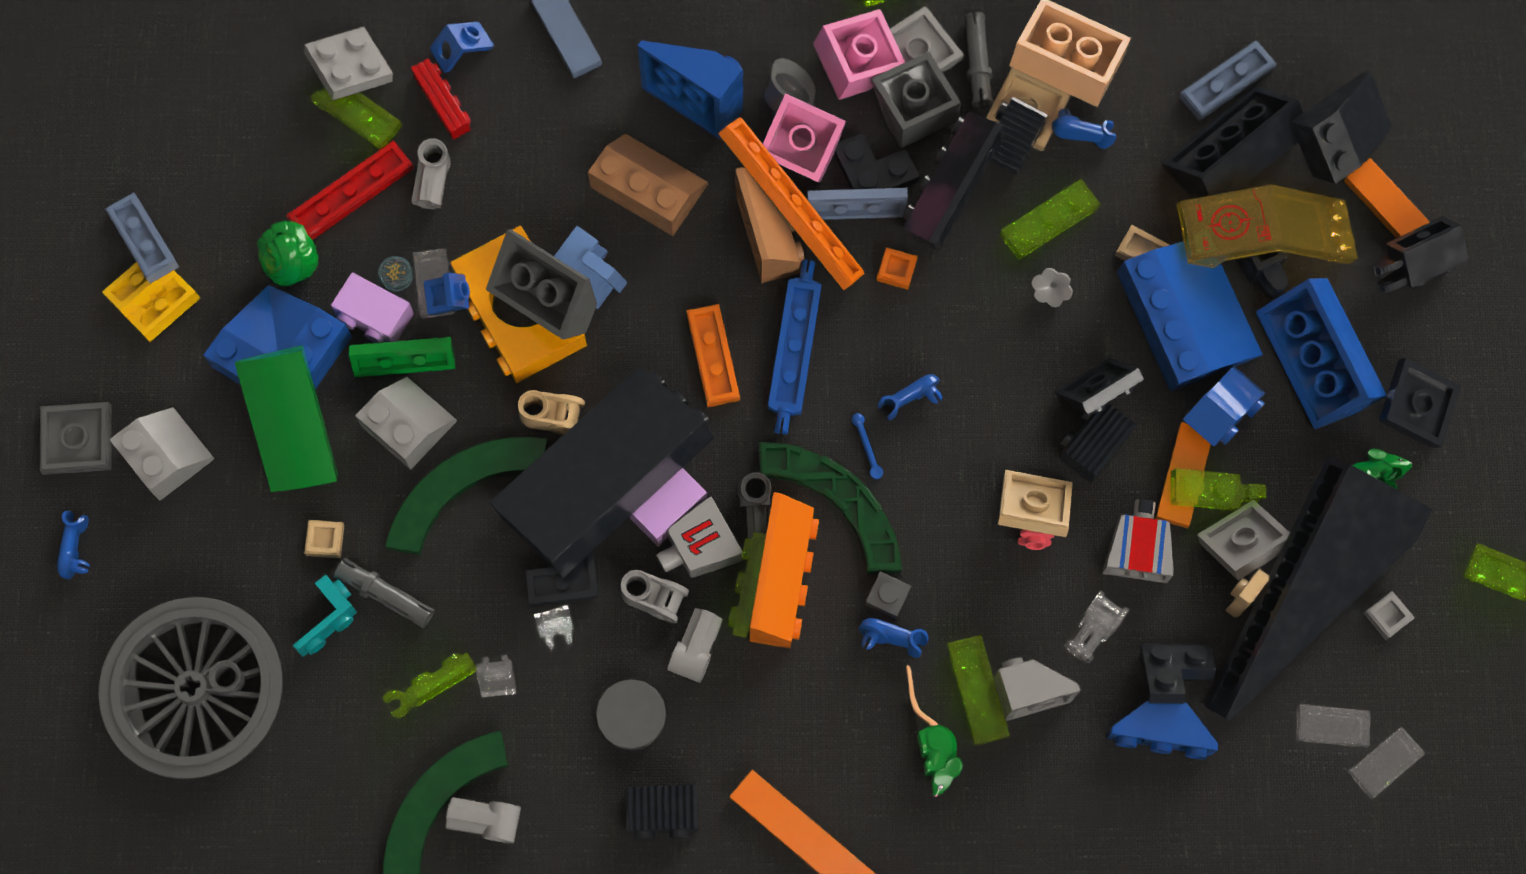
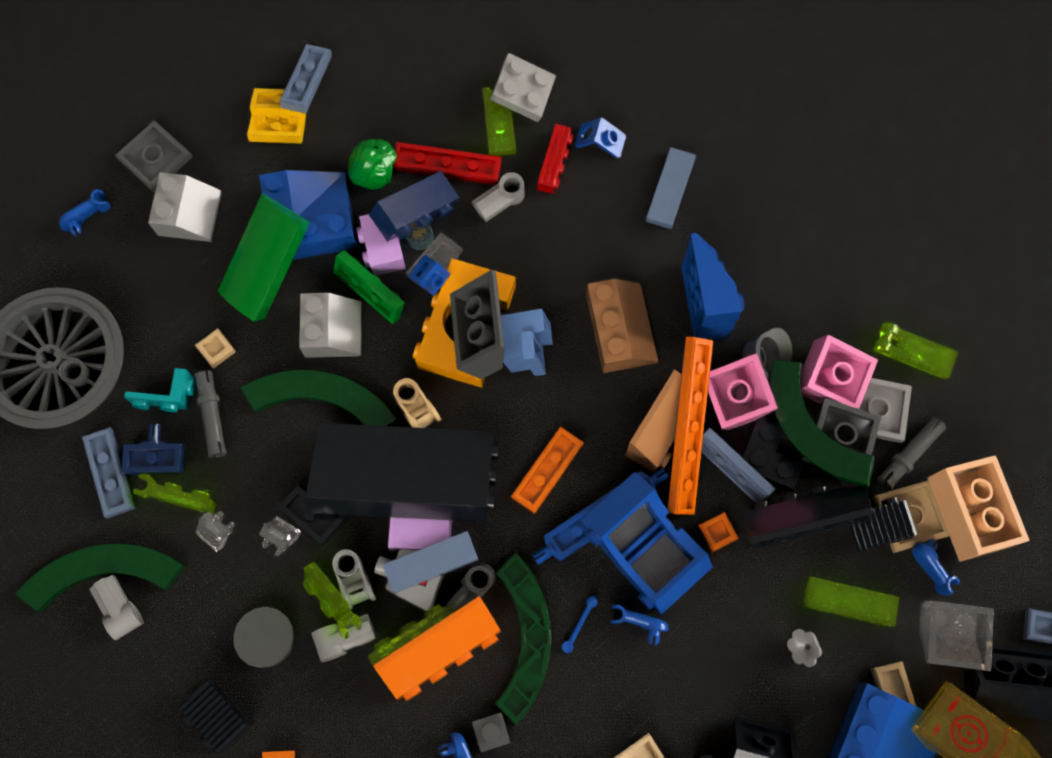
camera: 50 degrees right, 0 degrees up
(349, 728) = (106, 471): none -> sand blue tile
(372, 250) = (414, 207): none -> dark blue brick
(374, 674) = (153, 456): none -> dark blue plate
(654, 625) = (330, 599): none -> clear neon green plate
(704, 512) = (430, 562): none -> sand blue tile
(854, 331) = (645, 544): none -> blue window
(887, 120) = (807, 436): none -> dark green tile
(1149, 162) = (957, 634): none -> clear slope

